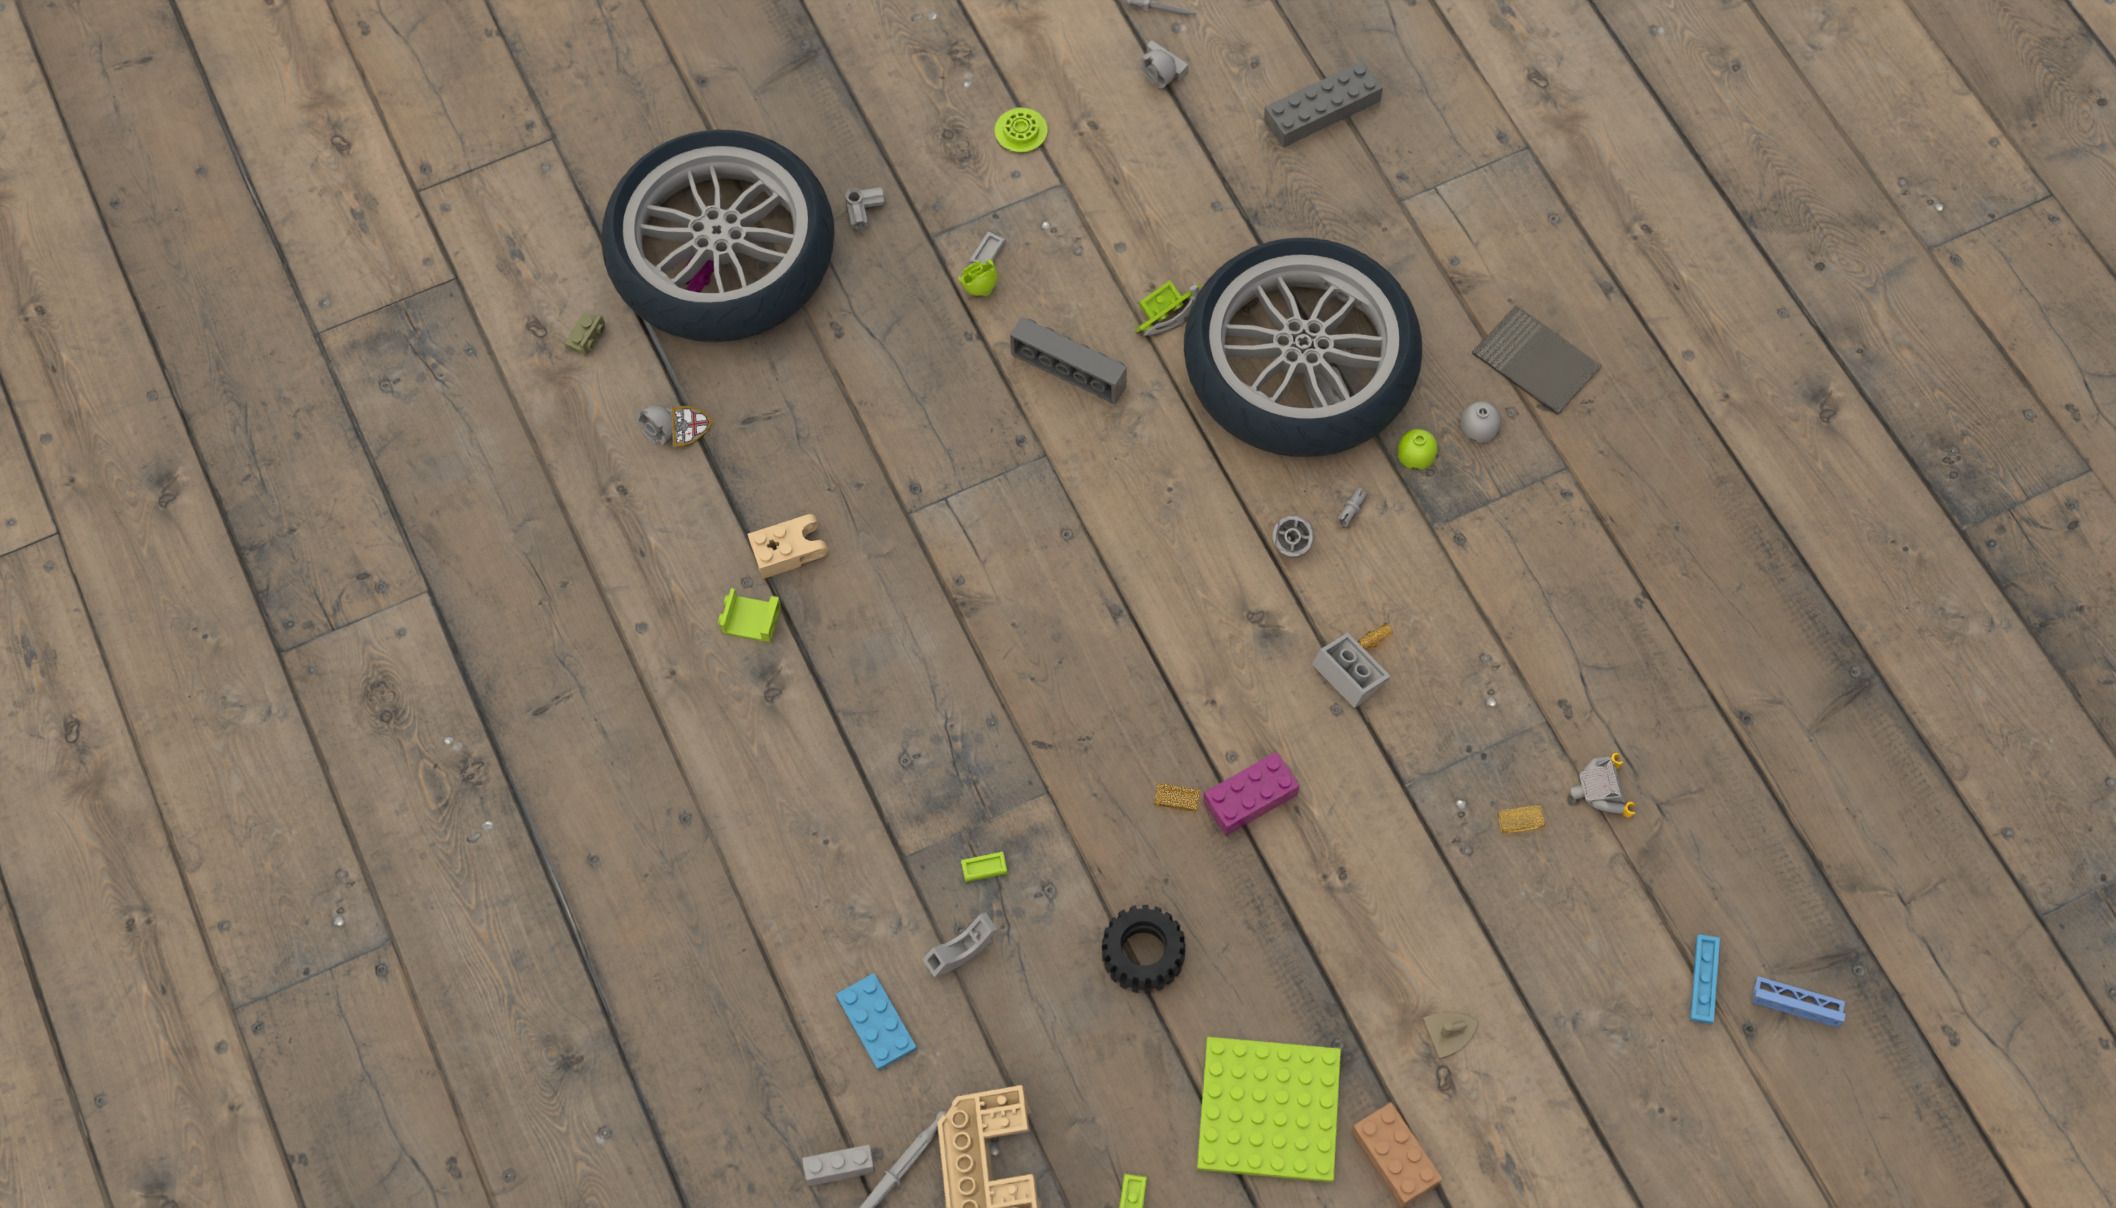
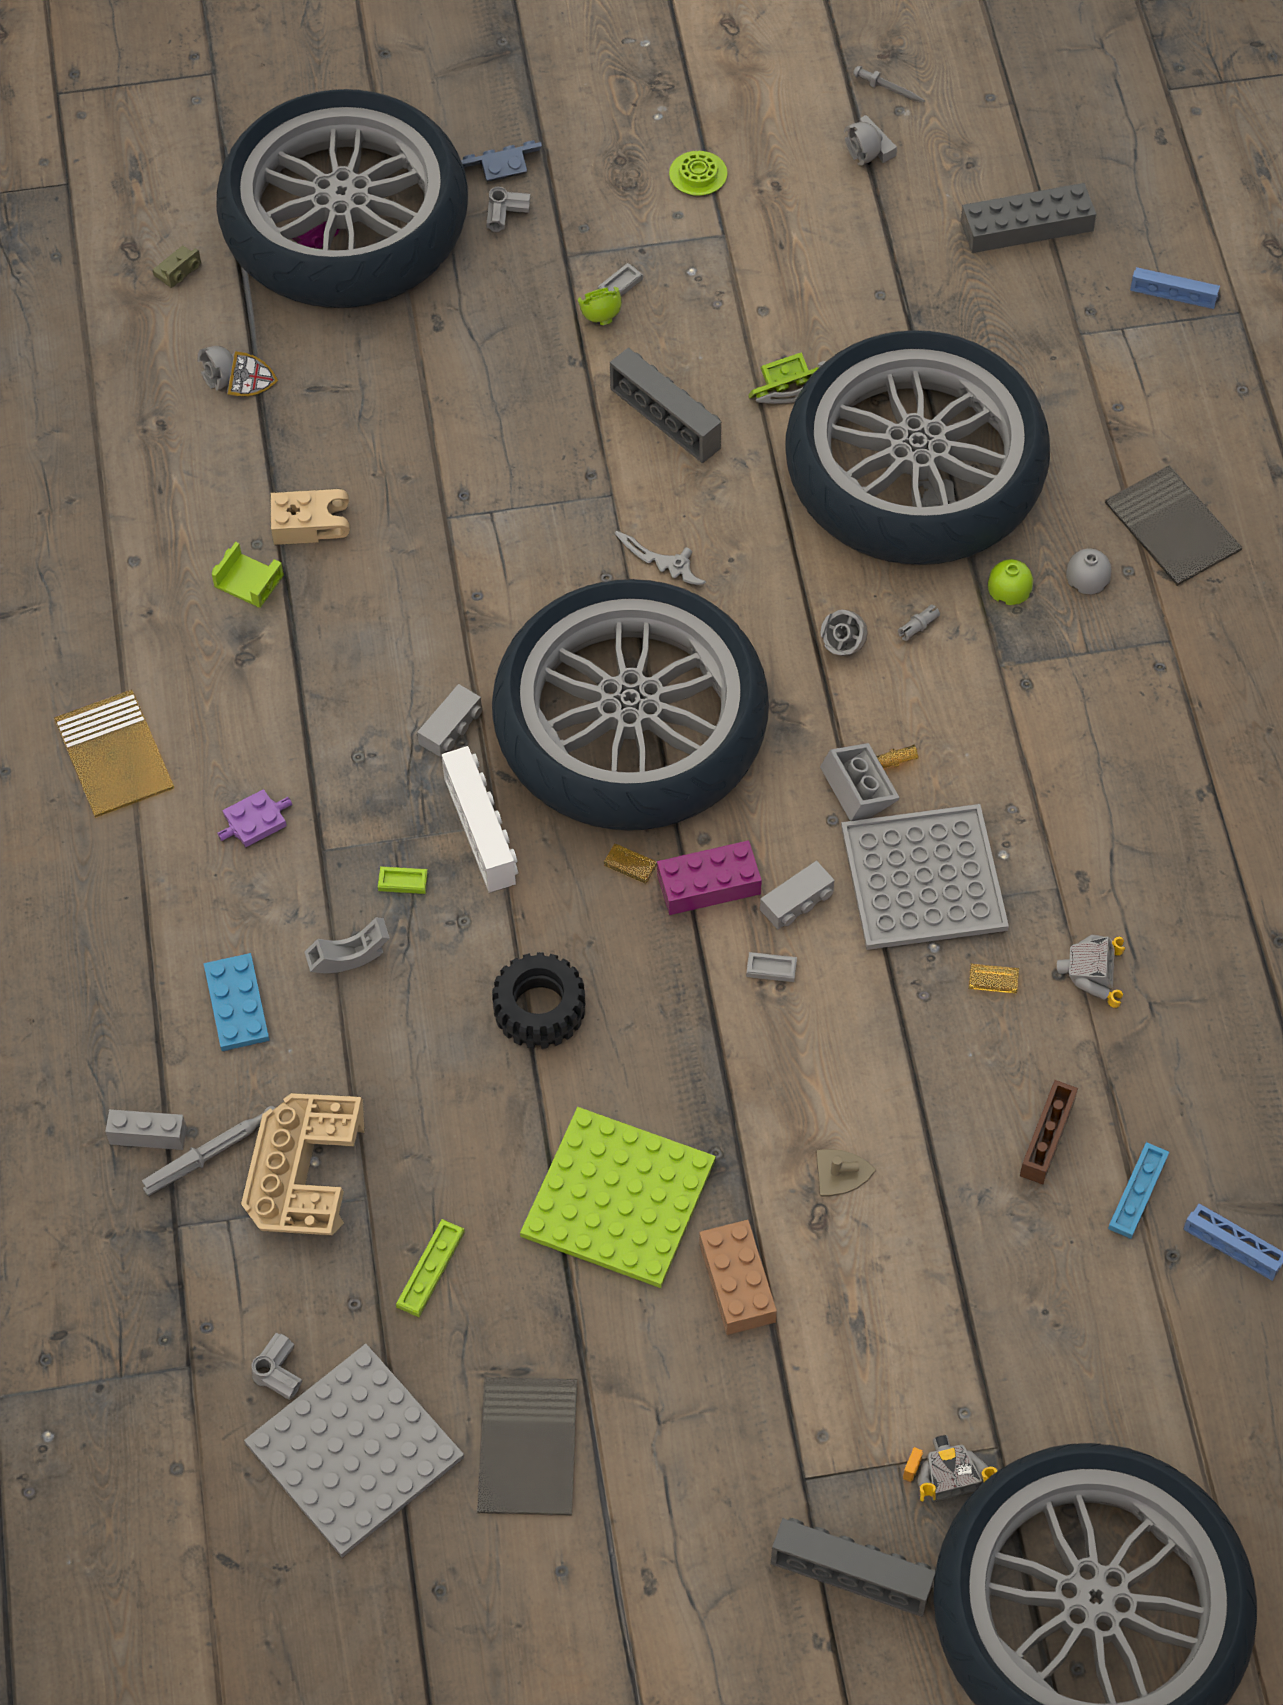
camera: 15 degrees right, 5 degrees down
(686, 816) = (113, 753): none -> clear yellow piece
(834, 844) = (254, 818): none -> medium lavender plate
(847, 163) = (502, 163): none -> sand blue bracket
(977, 707) = (450, 720): none -> light grey brick
(1035, 793) = (479, 819): none -> white brick
(1124, 505) = (676, 564): none -> light grey piece
(1142, 746) = (619, 611): none -> wheel
(1330, 860) = (771, 967): none -> light grey tile
(1332, 789) = (797, 895): none -> light grey brick
(1432, 742) = (924, 876): none -> light grey plate
(1467, 138) = (1174, 288): none -> medium blue fence
(1615, 948) = (1048, 1132): none -> reddish brown brick

